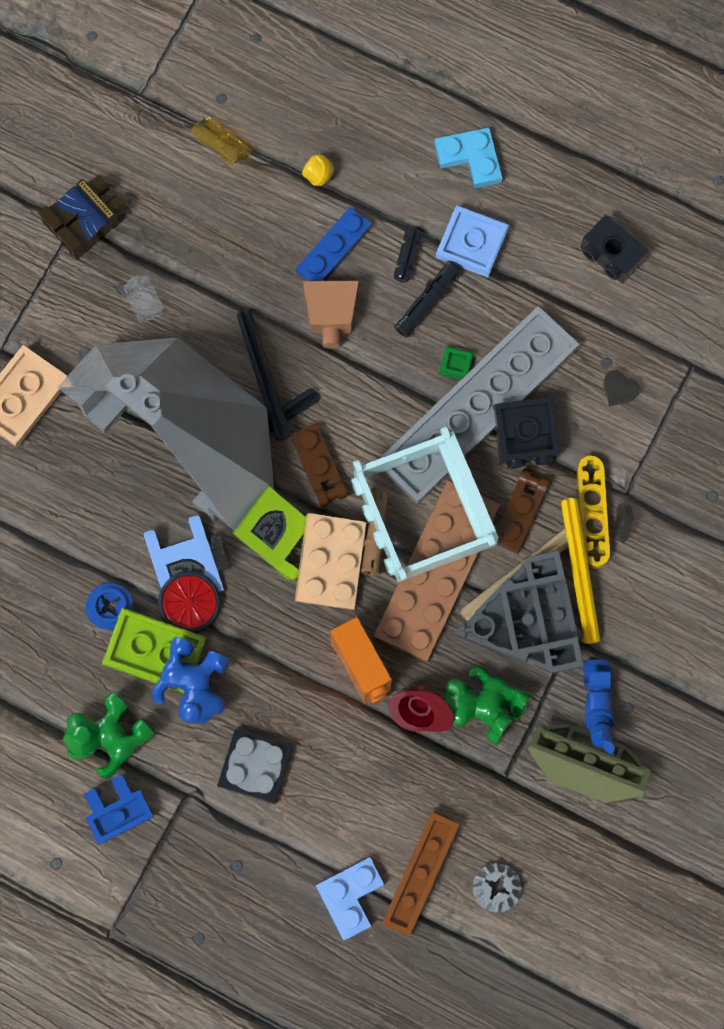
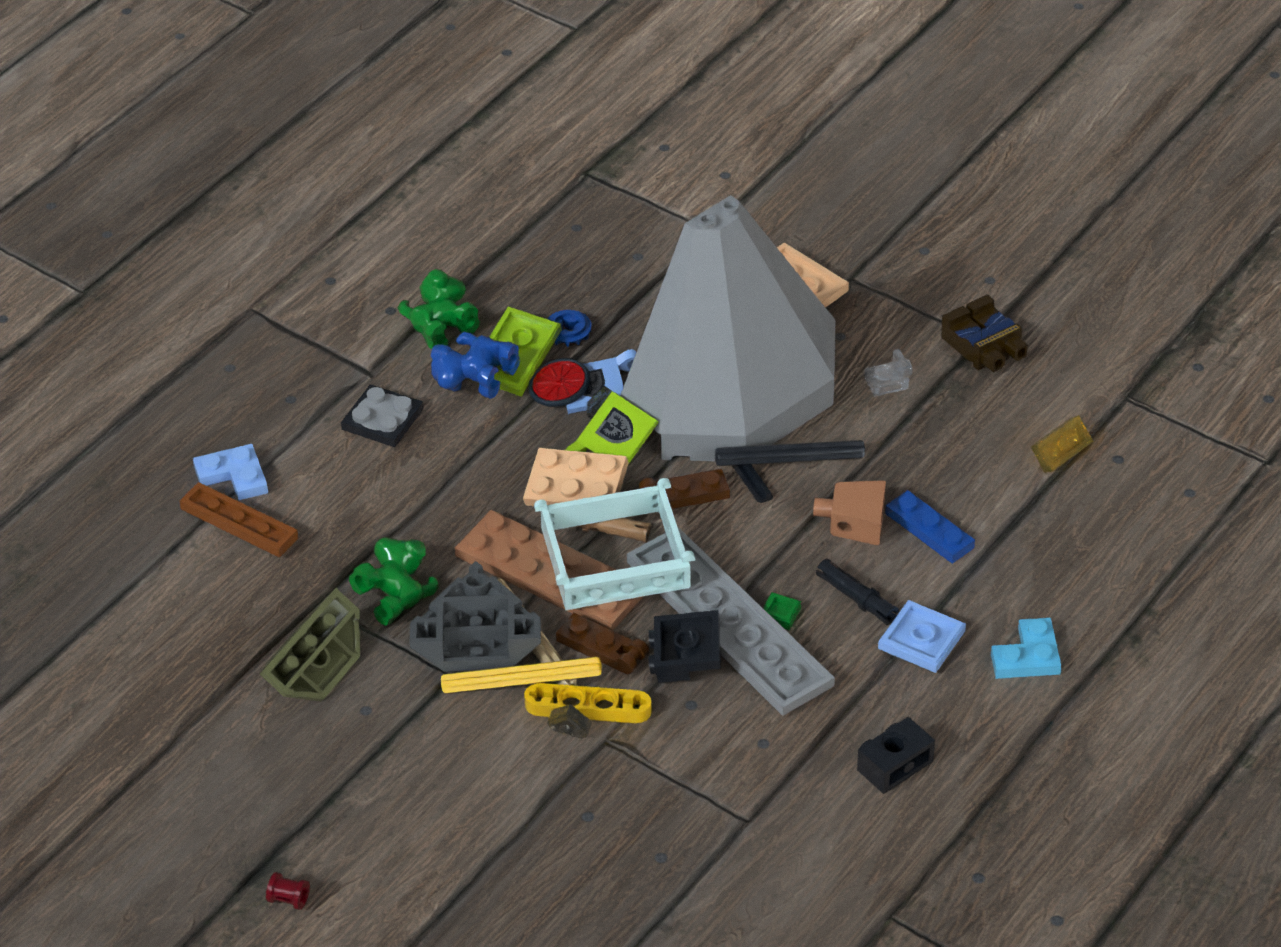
camera: 100 degrees right, 30 degrees down
(119, 816) = (359, 314): blue plate -> none
(318, 170) = (1020, 516): yellow piece -> none
(361, 661) = (462, 484): orange brick -> none
(407, 255) = (912, 582): black axle -> none
(421, 710) = (410, 526): dark red piece -> none
(501, 901) = (207, 587): light grey gear -> none
(598, 705) = (369, 674): blue piece -> none
(619, 388) = (728, 744): clear smoke tile -> none

